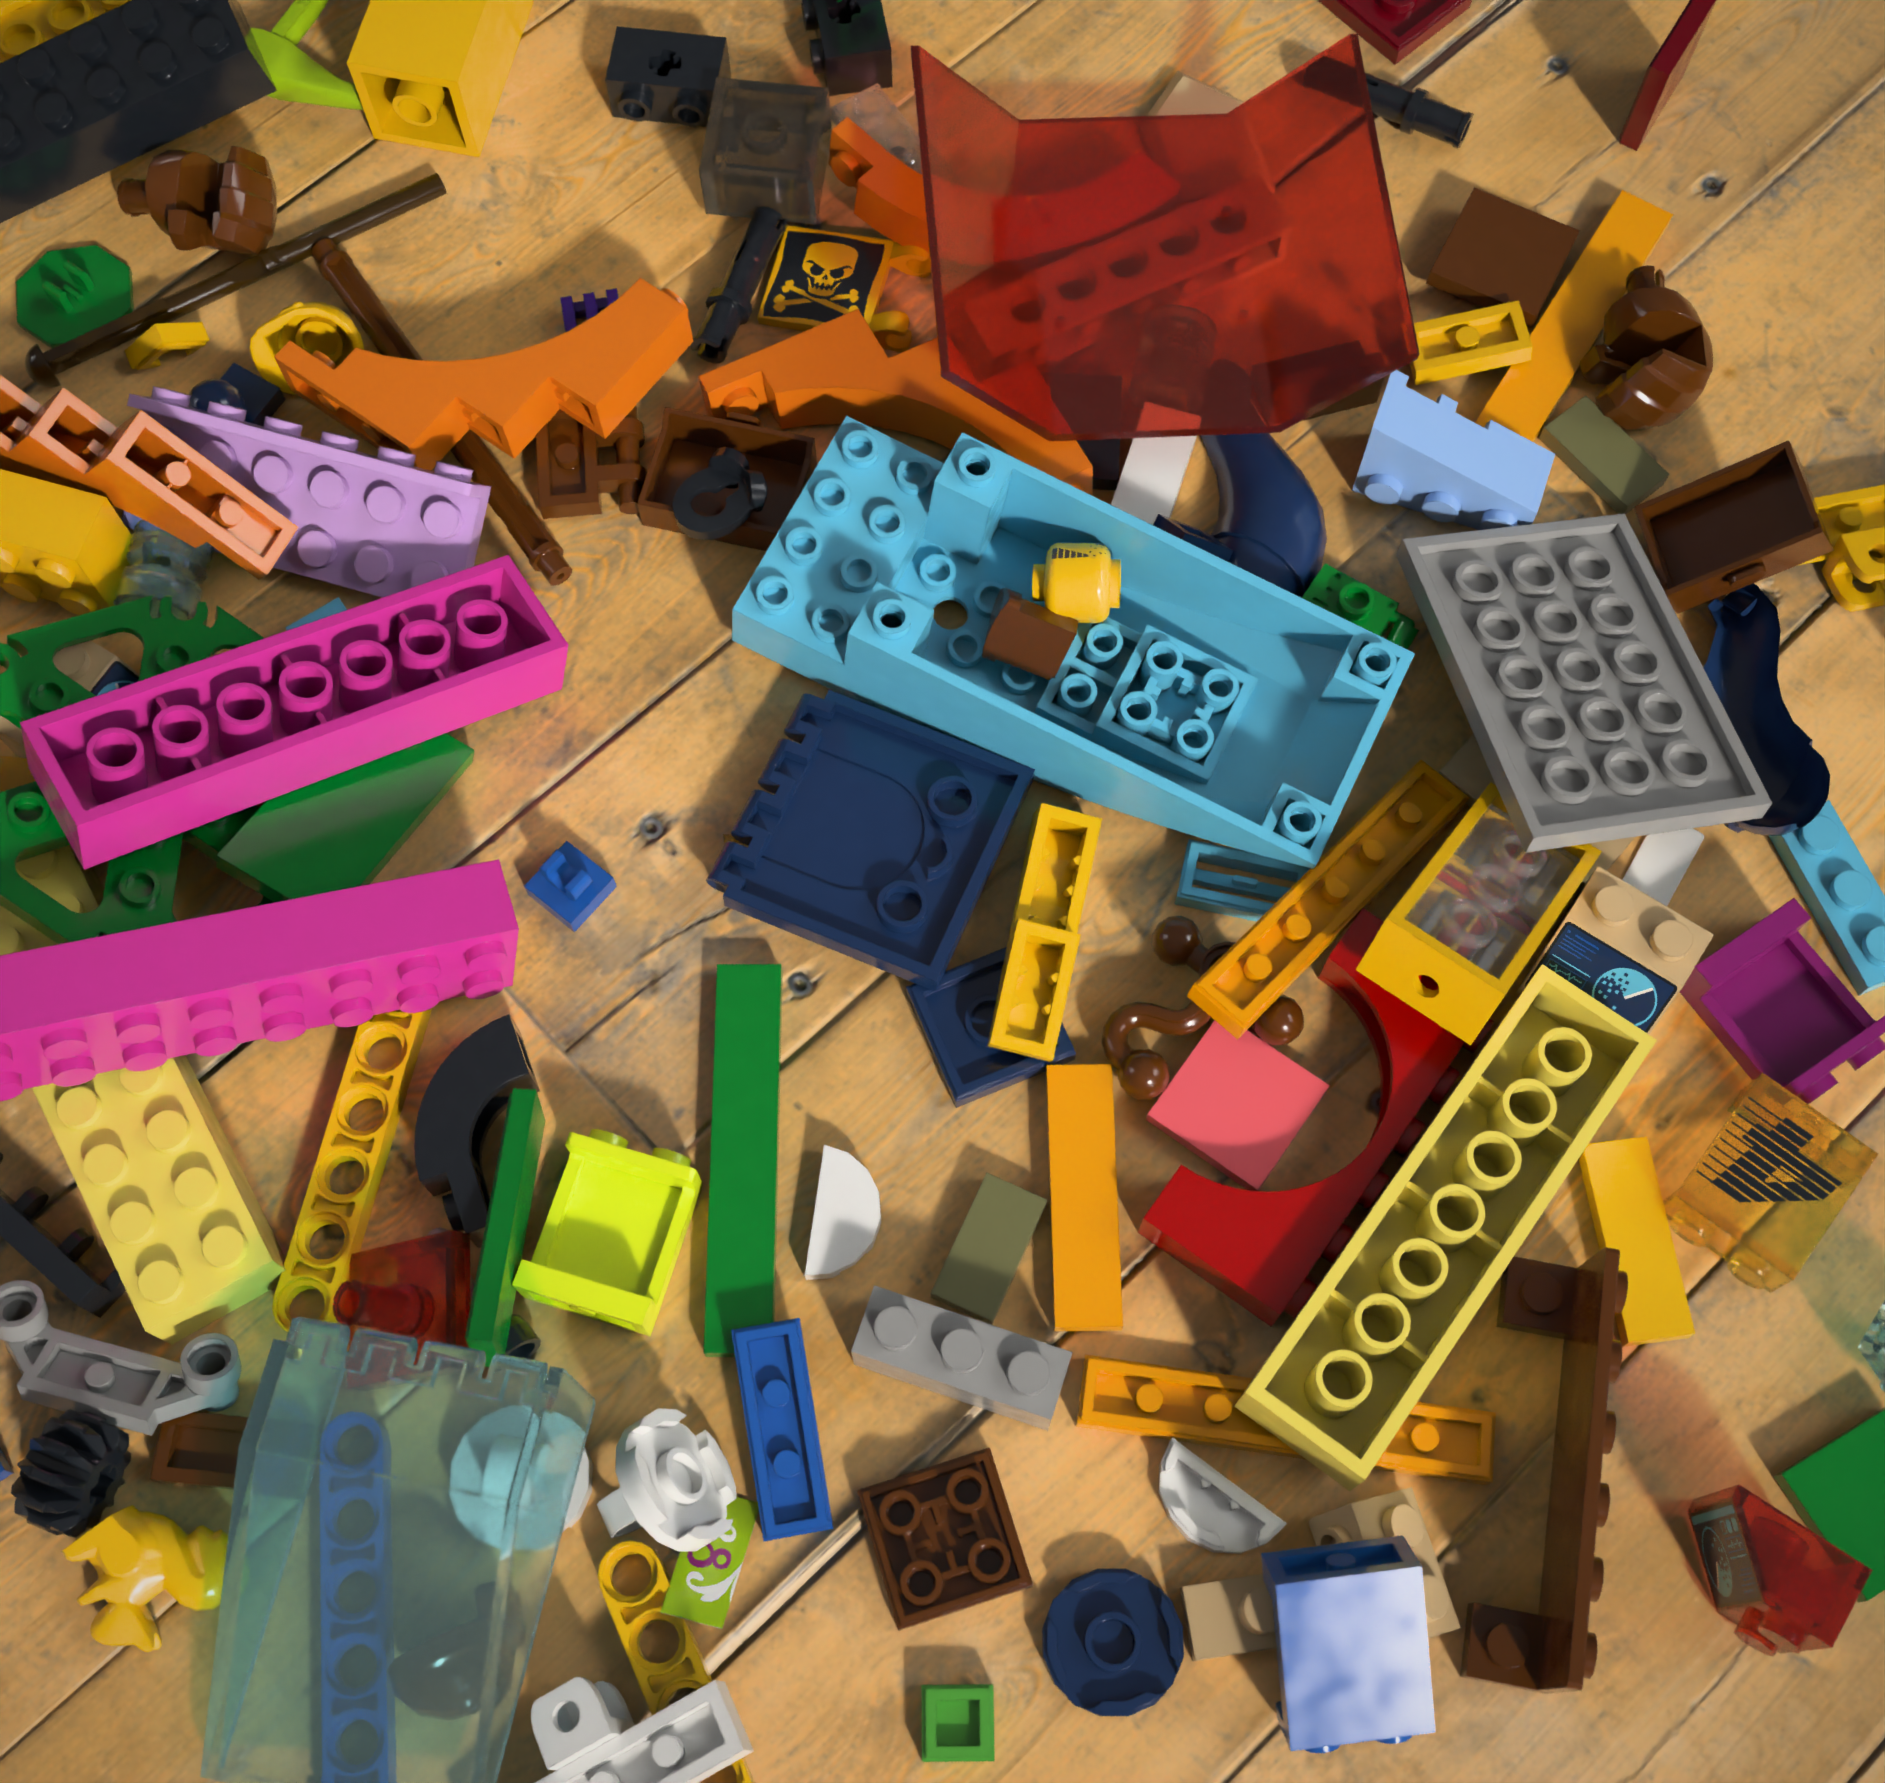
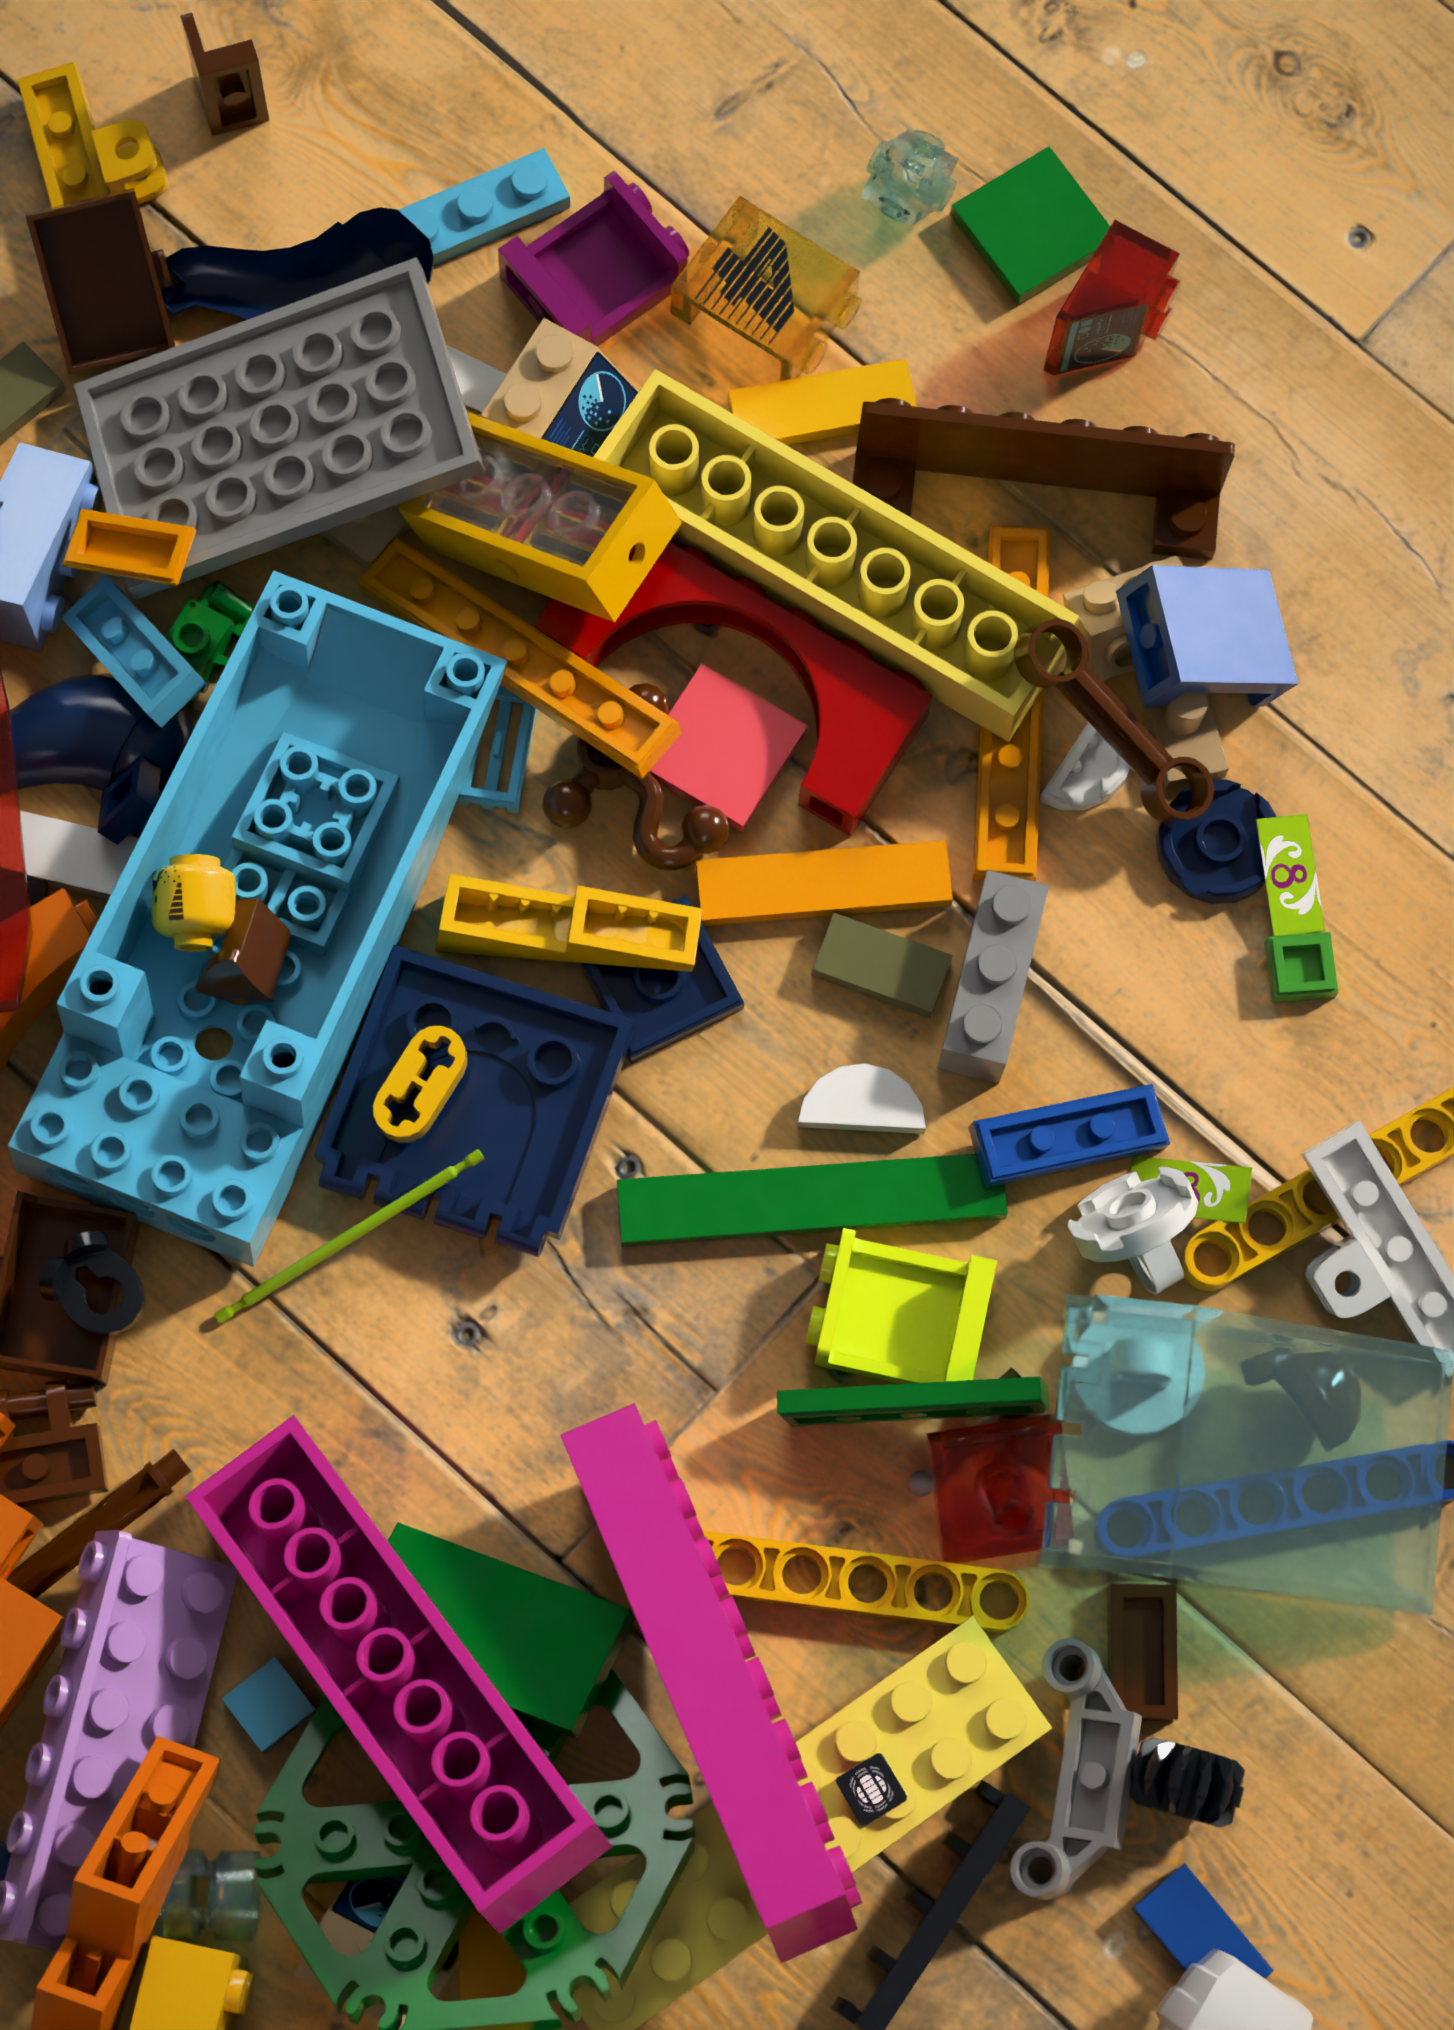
camera: 100 degrees left, 5 degrees up
(115, 1139) = (871, 1789): none -> black sticker
(137, 1560) = (1250, 1710): yellow animal -> none
(457, 1114) = (804, 1477): black arch -> none
(570, 886) = (542, 1404): blue tile -> none
(749, 720) = (349, 1236): none -> lime piece
(892, 767) = (408, 1075): none -> yellow beam
(944, 1539) = (1147, 989): reddish brown tile -> none
(1066, 1721) = (1290, 875): none -> lime sticker
(1236, 1513) = (1114, 721): none -> reddish brown piece
(1335, 546) = (133, 651): none -> medium azure plate
(1441, 538) = (129, 547): none -> light orange tile

